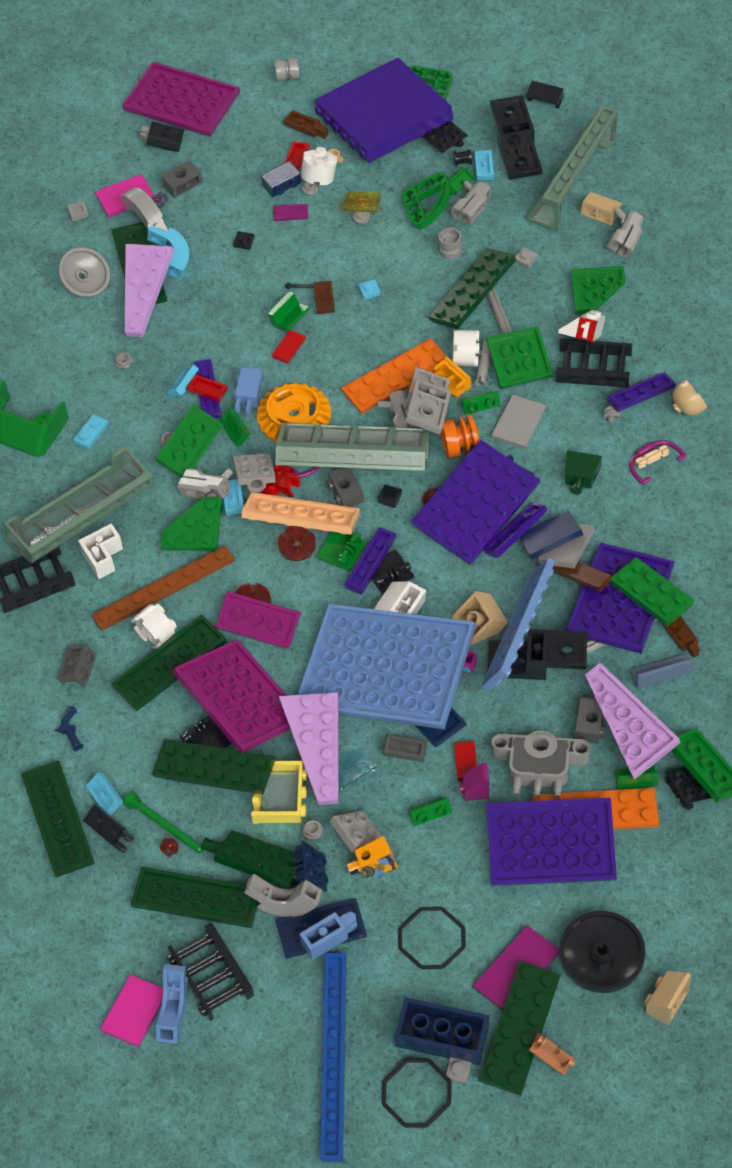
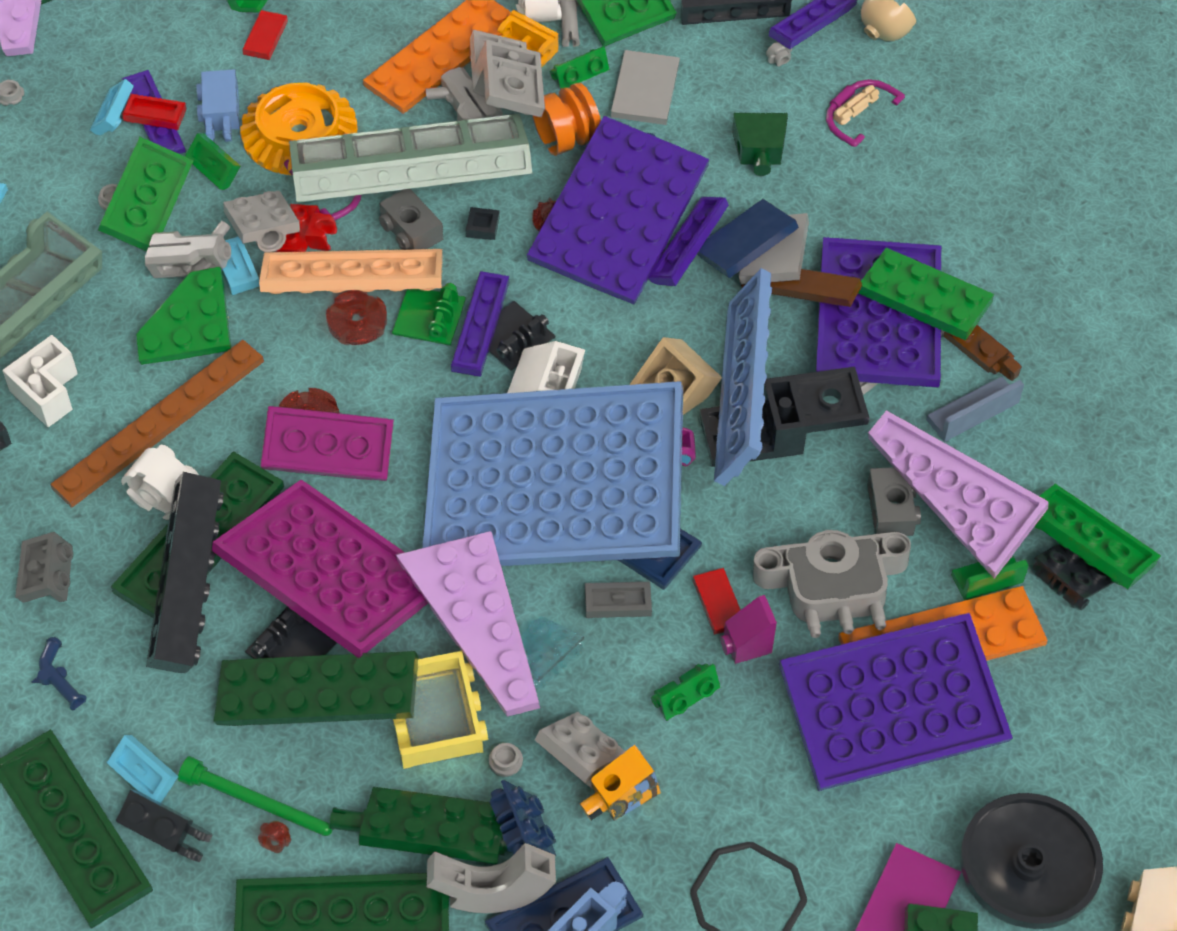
camera: 20 degrees left, 0 degrees up
(153, 683) = (184, 573): none -> black brick

